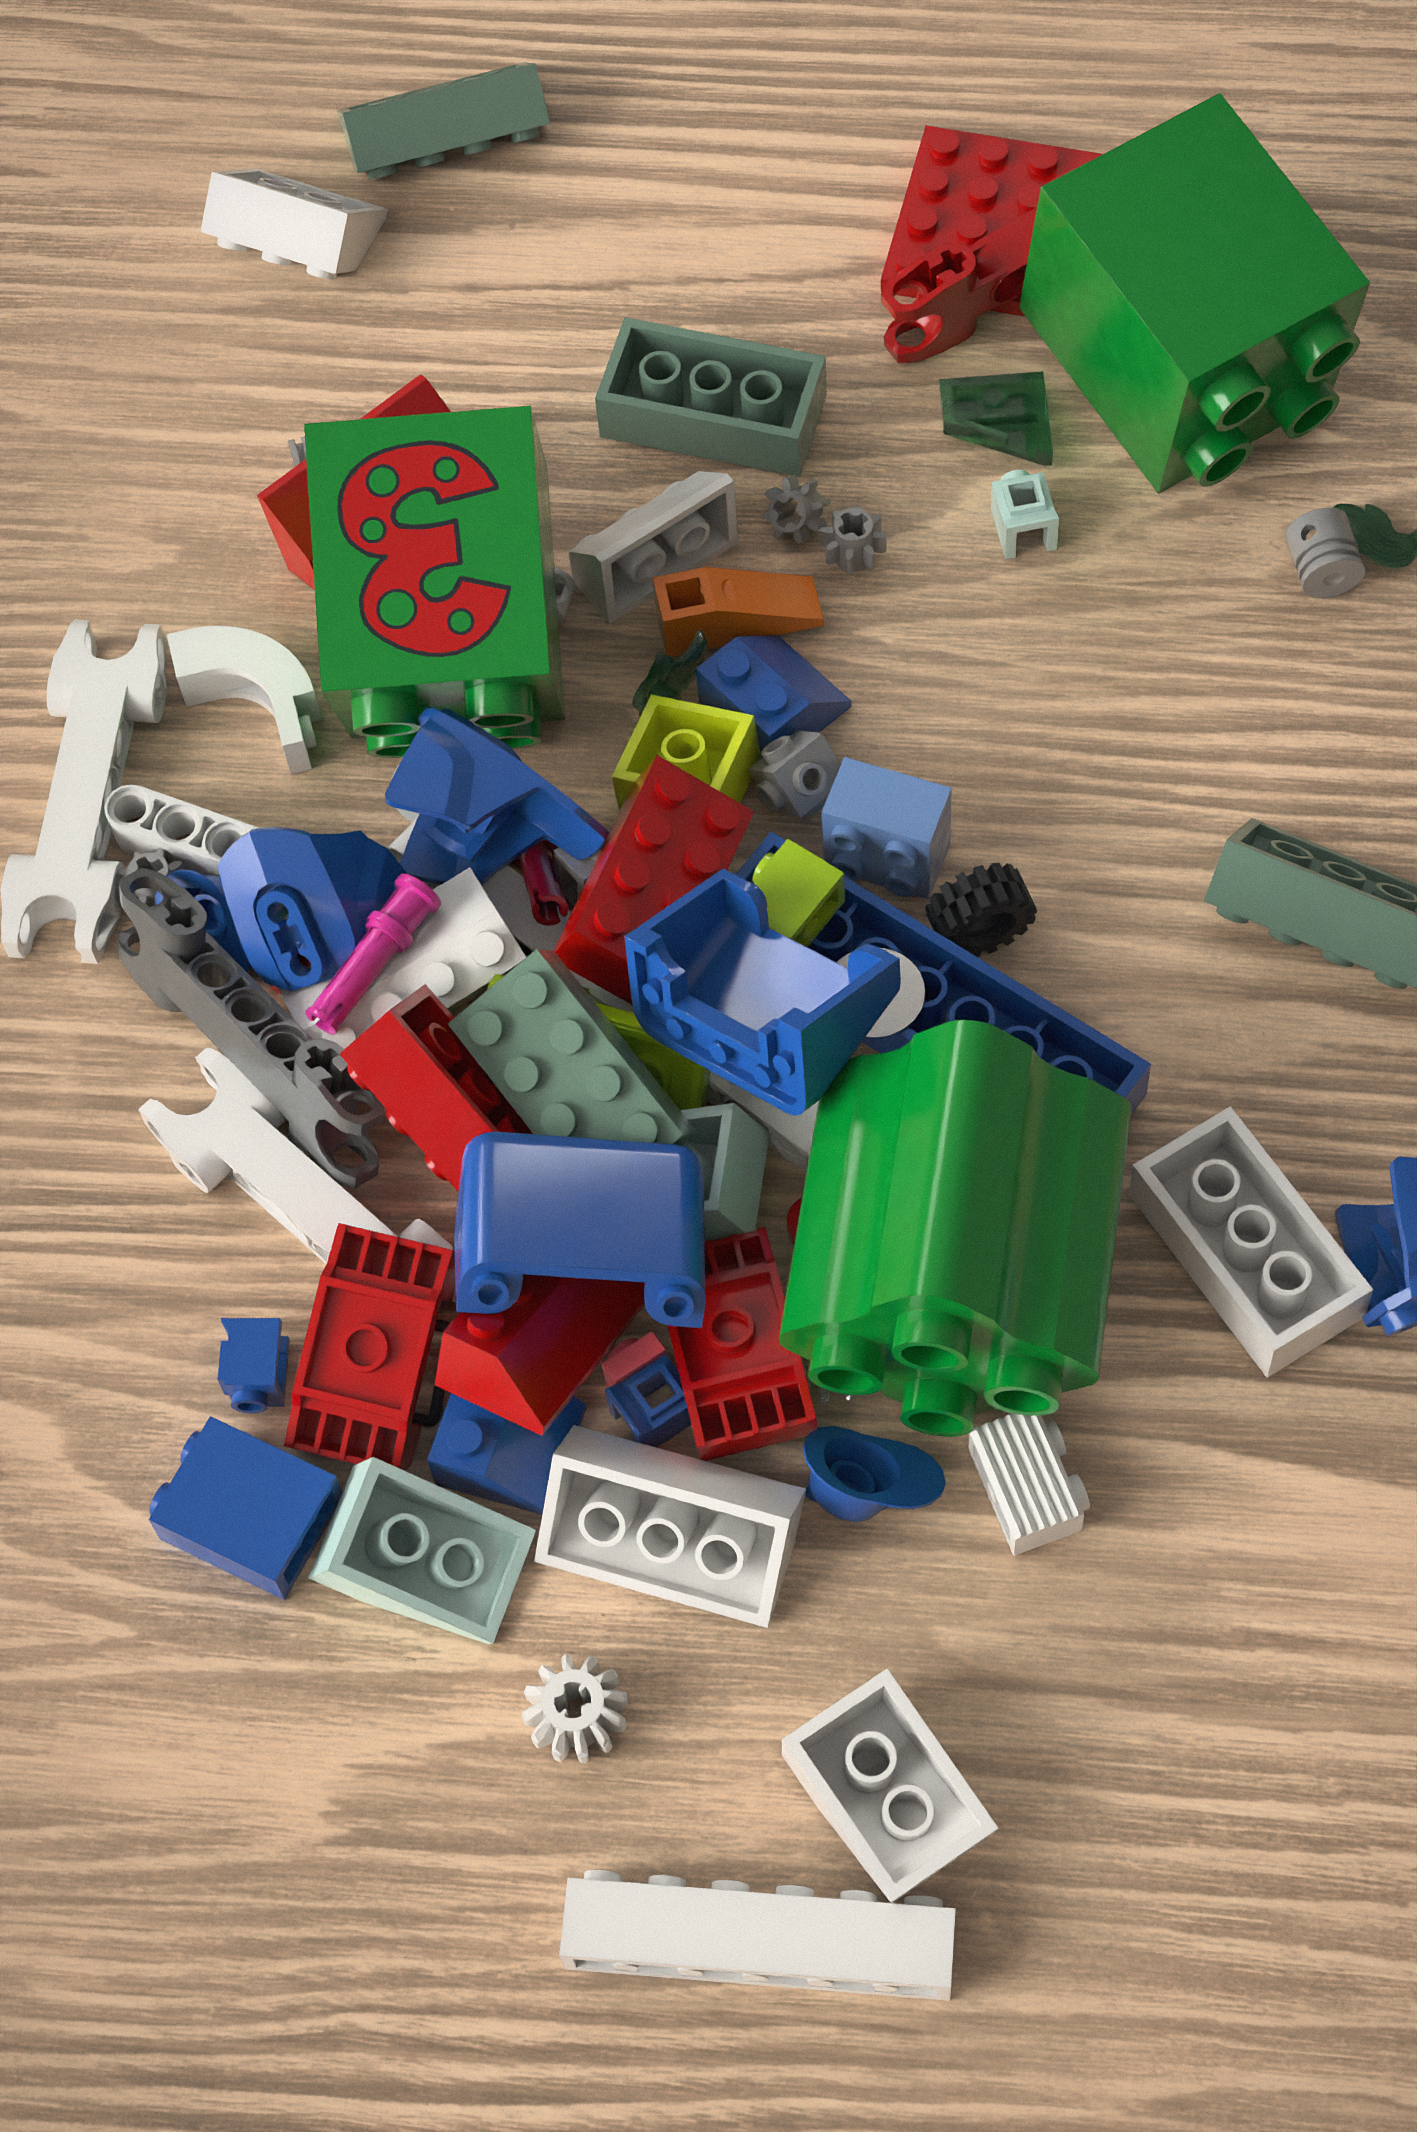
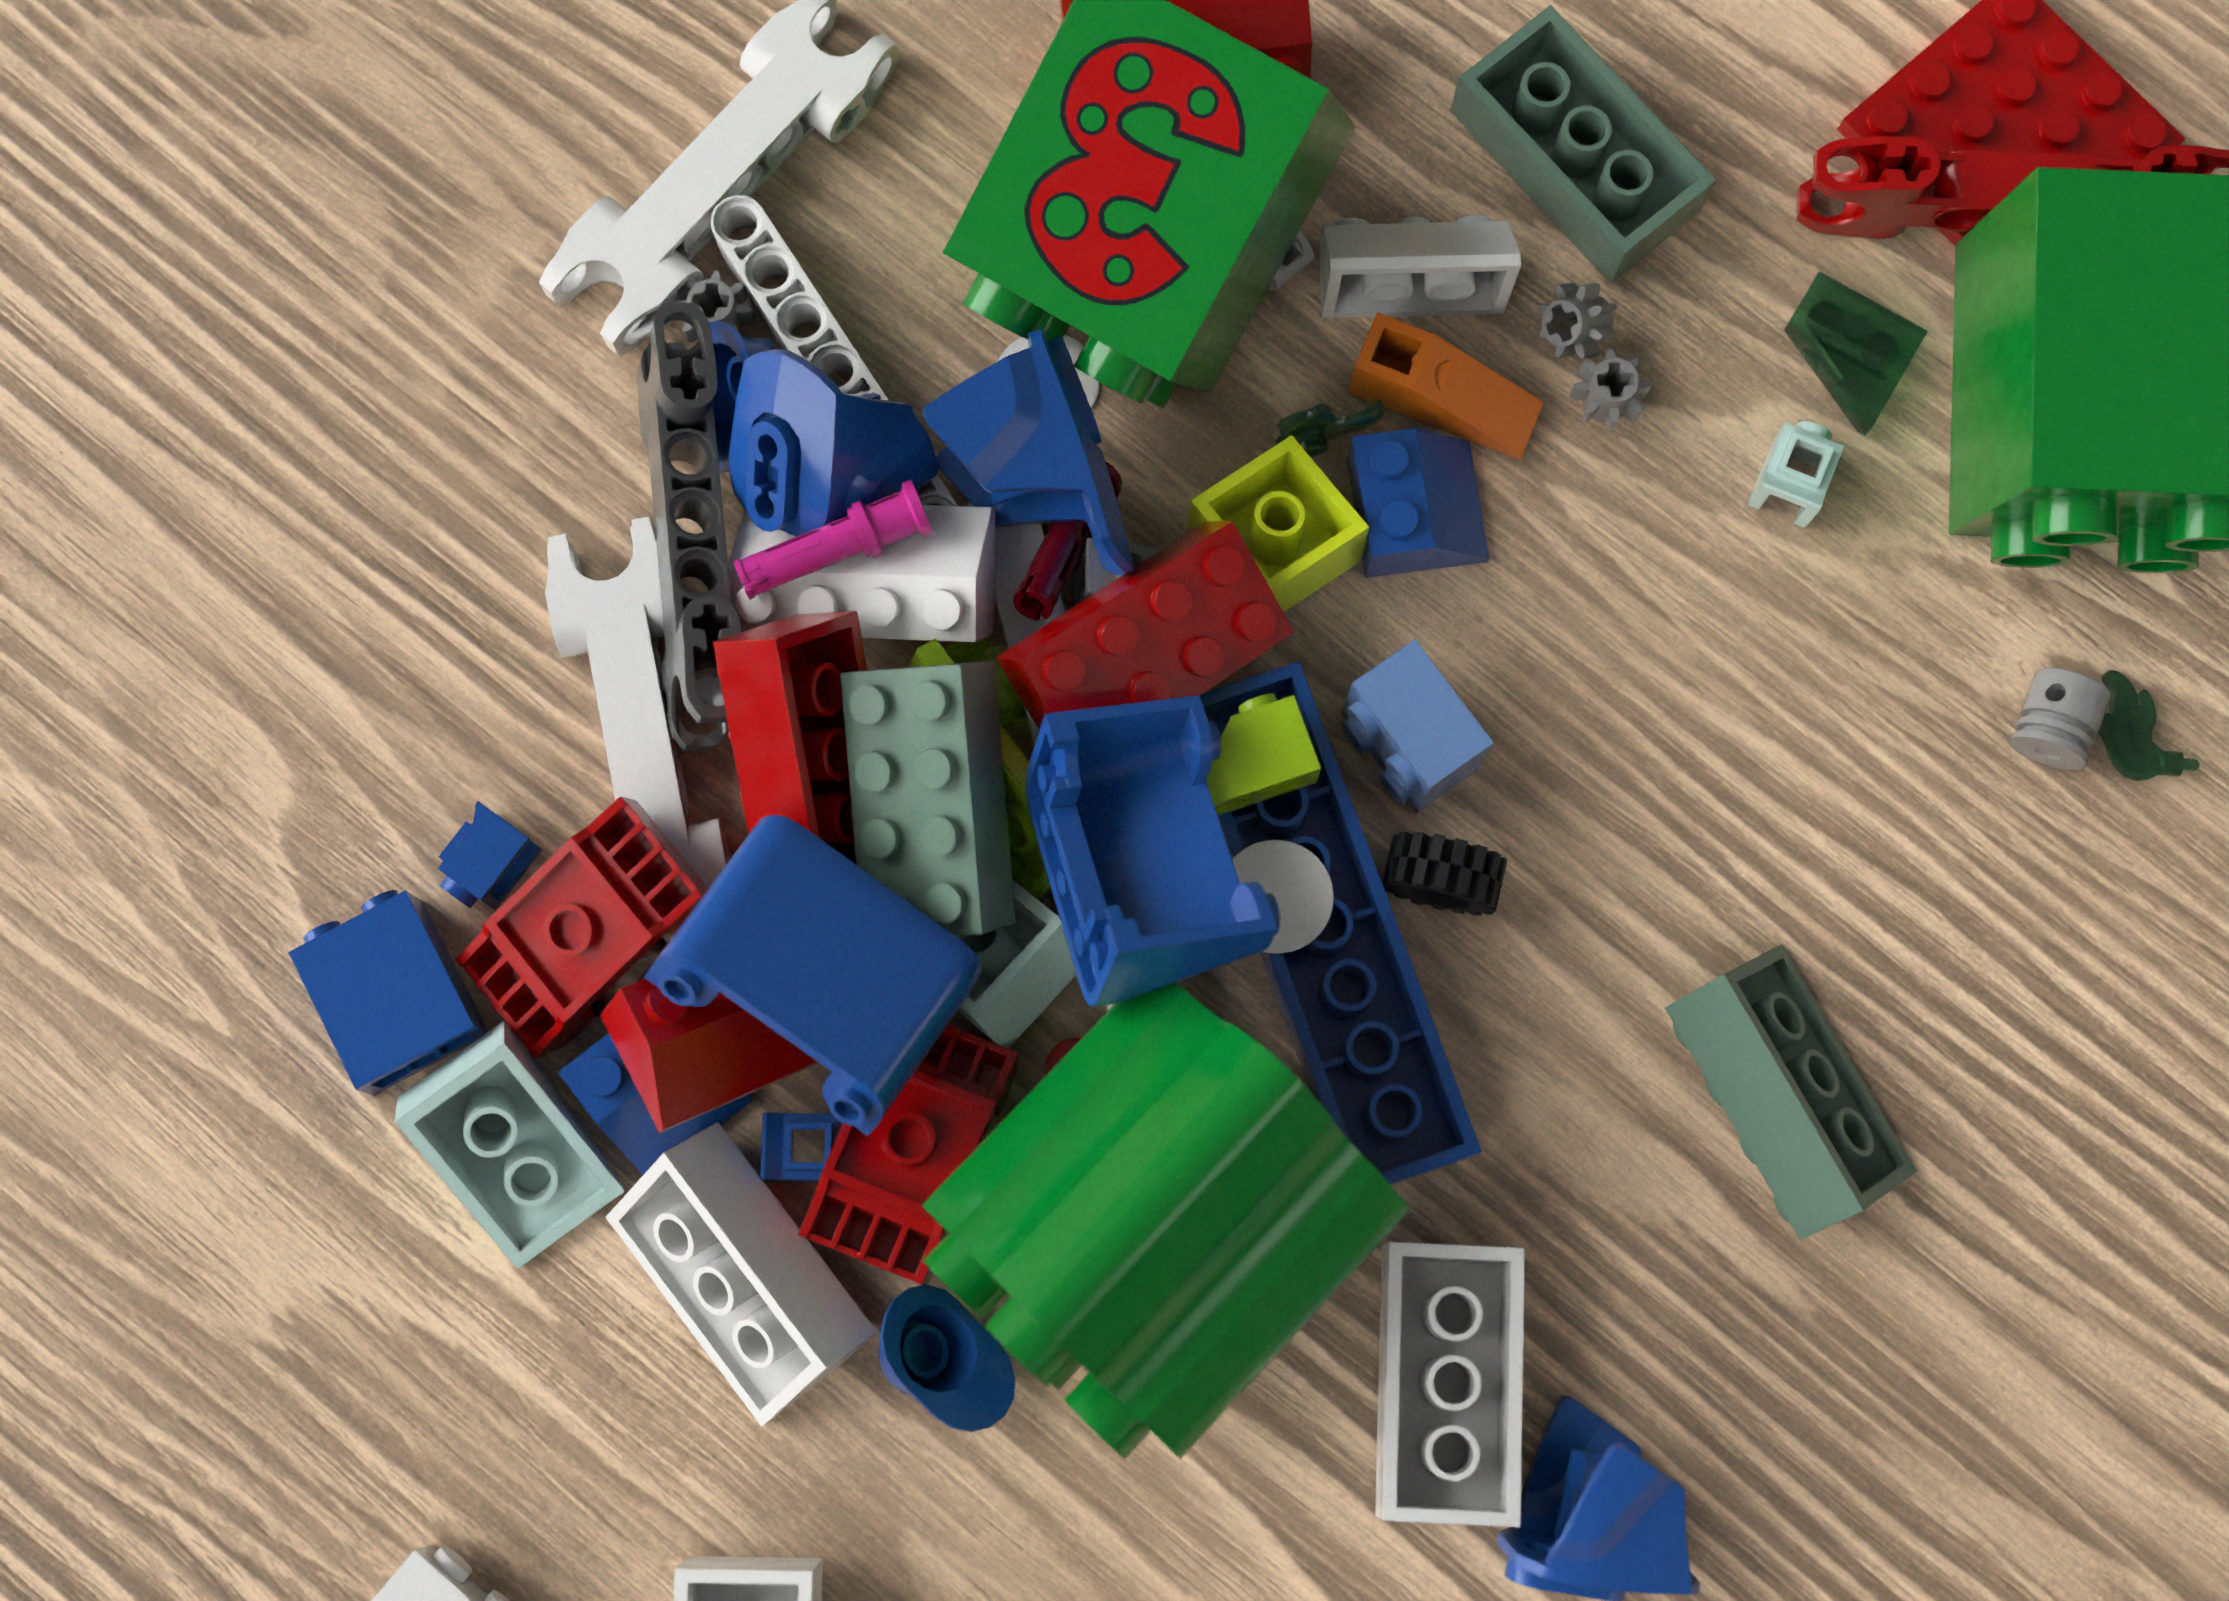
camera: 30 degrees right, 15 degrees up
(250, 666) = (939, 127): white arch -> none
(552, 1706) = (544, 1413): white gear -> none
(631, 1357) = (804, 1096): coral plate -> none
(795, 774) = (1375, 607): light grey brick -> none
(1028, 1481) = (1076, 1477): white brick -> none

